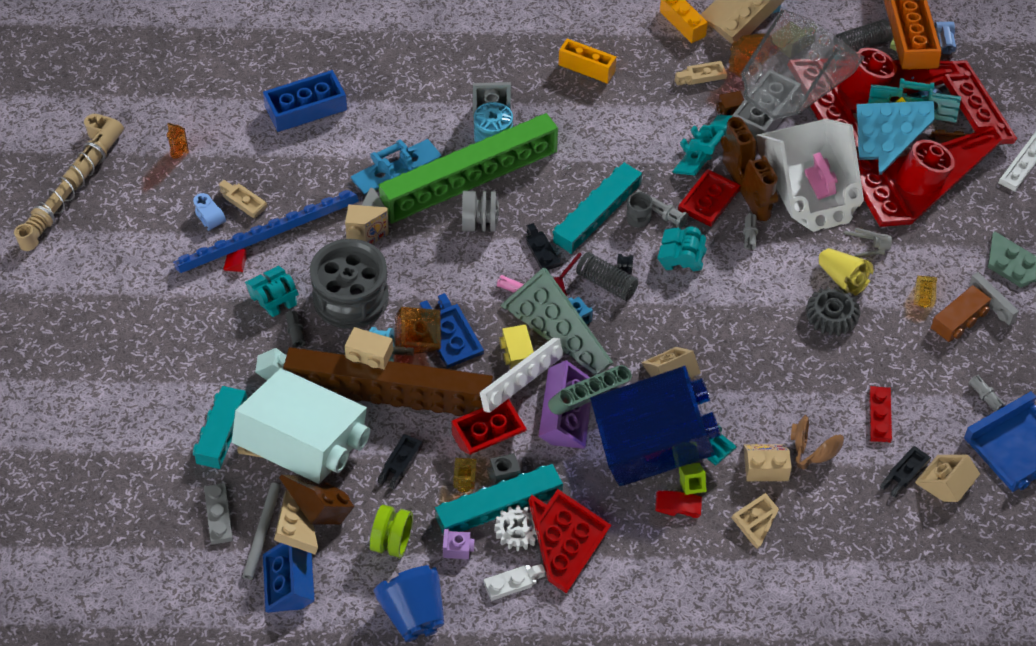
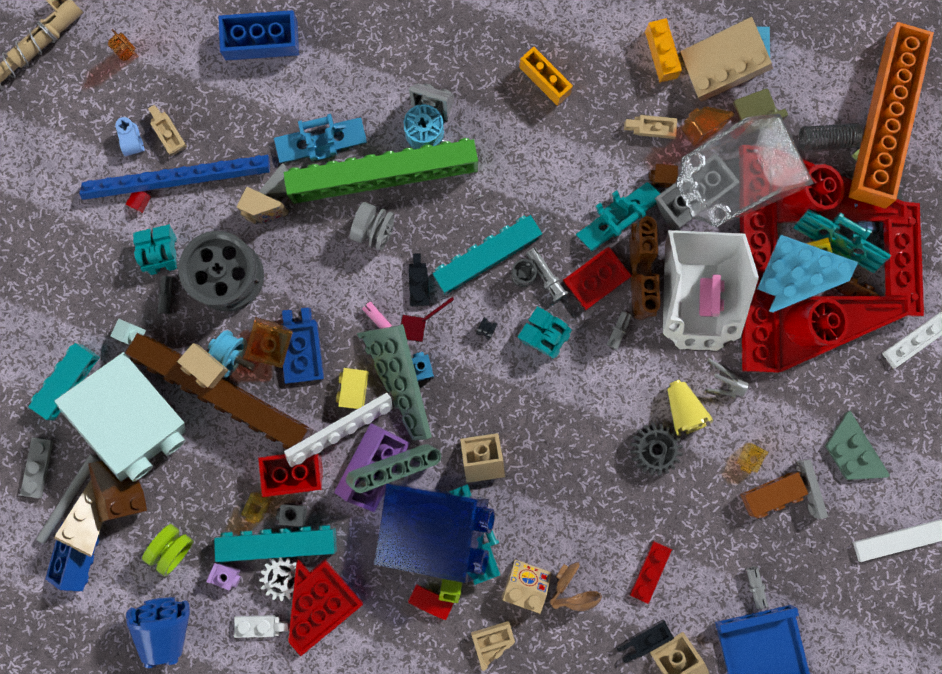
camera: 20 degrees right, 30 degrees up
(400, 460) = (208, 469): black hinge -> none
(629, 284) = (453, 315): dark grey piece -> none
(945, 34) = (914, 159): light blue piece -> none

